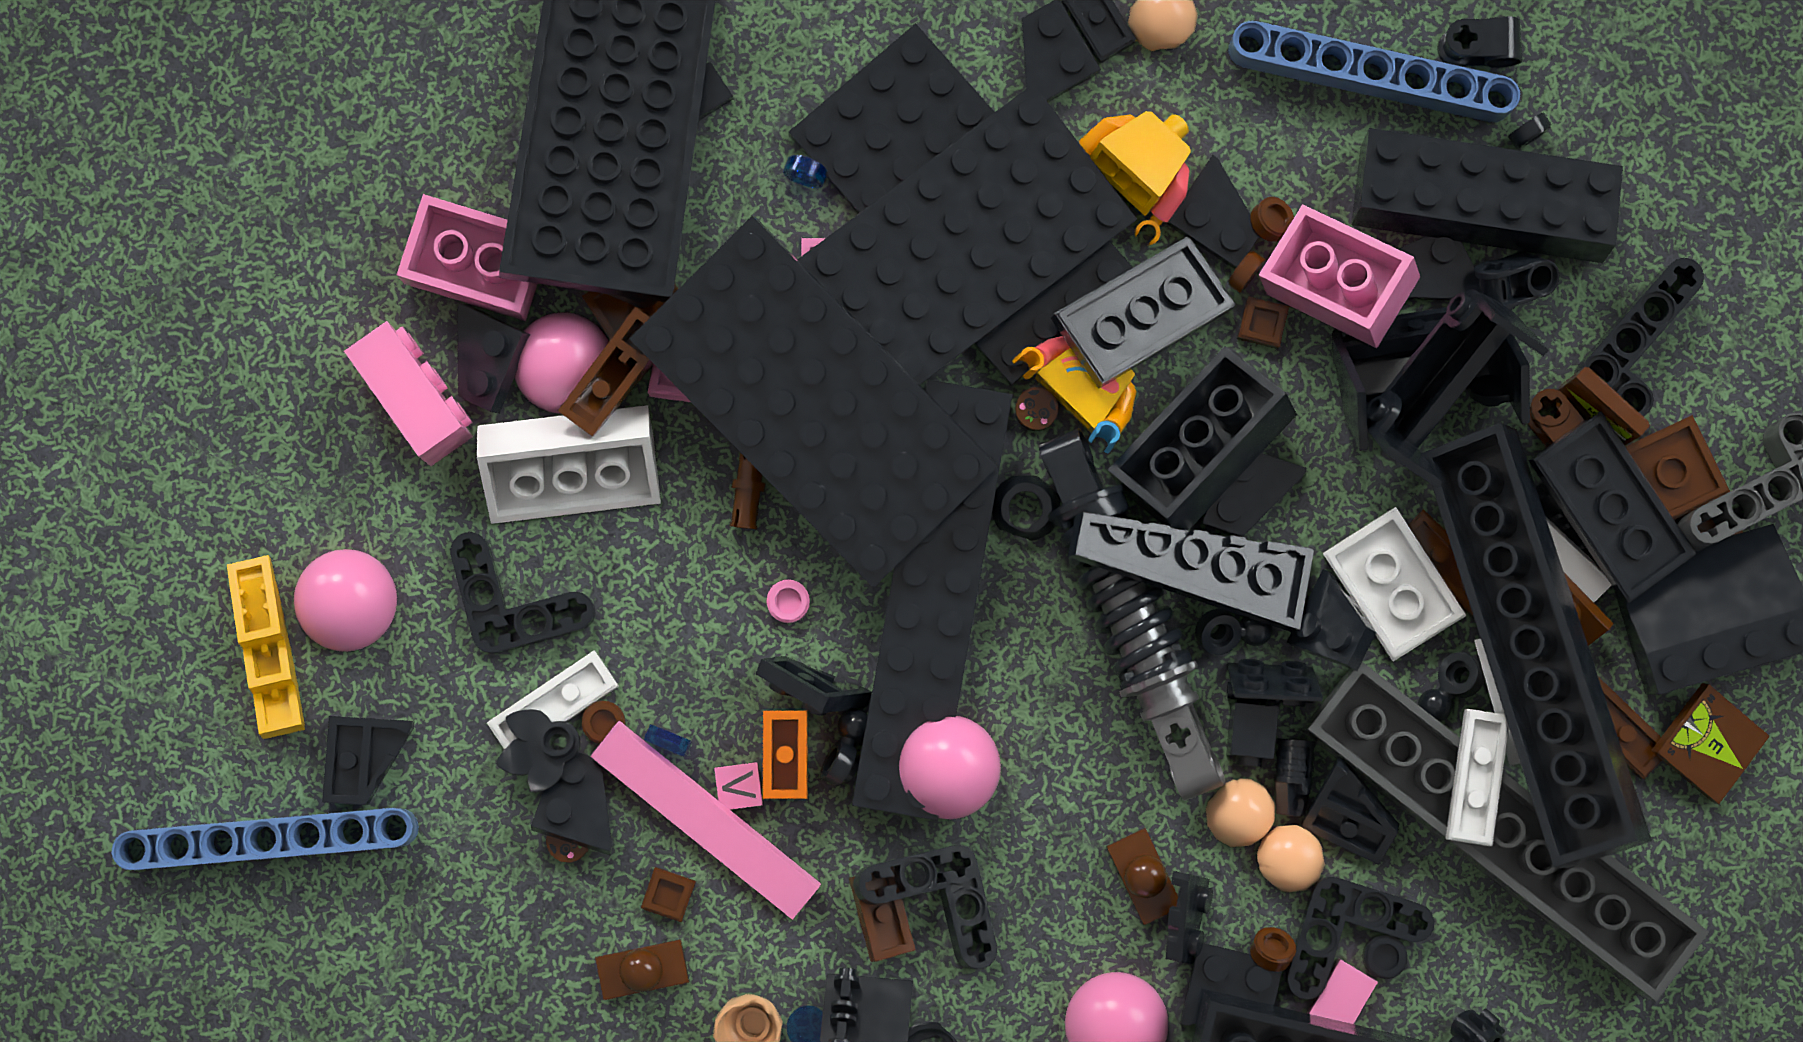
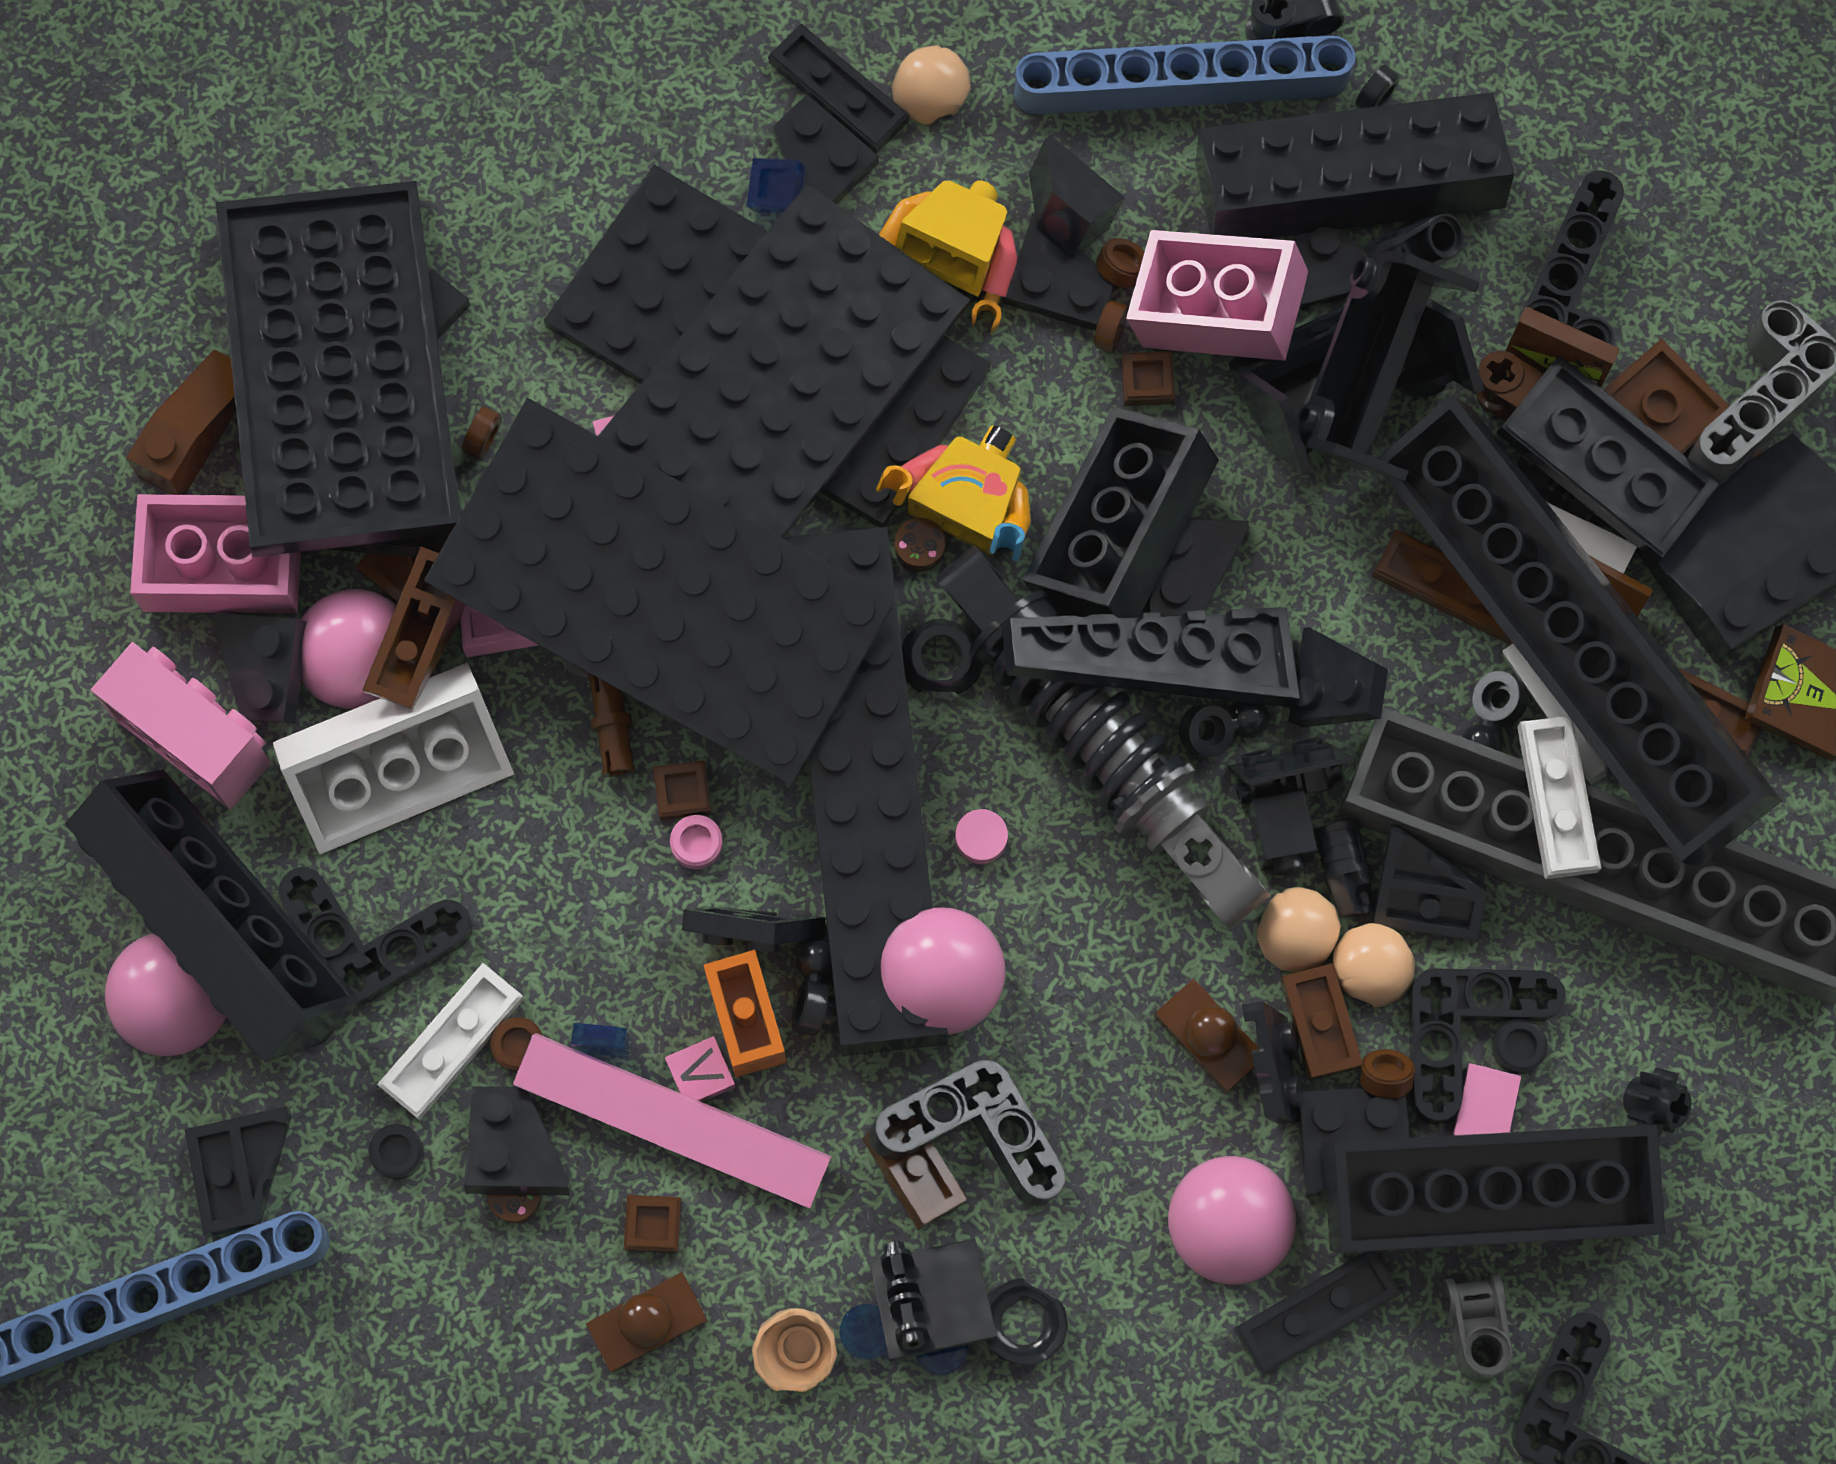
camera: 15 degrees left, 10 degrees down
(265, 647) = (87, 1073): yellow slope -> none
(393, 554) = (212, 914): none -> black brick
(479, 139) = (186, 427): none -> reddish brown slope
(486, 779) = (396, 1151): none -> black tile
(532, 750) = (441, 1095): black plate -> none
(712, 214) = (482, 432): none -> reddish brown tile
(789, 556) = (682, 790): none -> reddish brown tile
(805, 171) = (575, 357): clear blue tile -> none
(1009, 70) = (774, 184): none -> clear blue tile
(1013, 663) = (981, 836): none -> bright pink tile
(1143, 312) = (1008, 399): tile -> none
(1234, 892) = (1321, 1022): none -> reddish brown plate
(1246, 152) = (1070, 198): none -> black slope
(1394, 584) = (1391, 618): white tile -> none

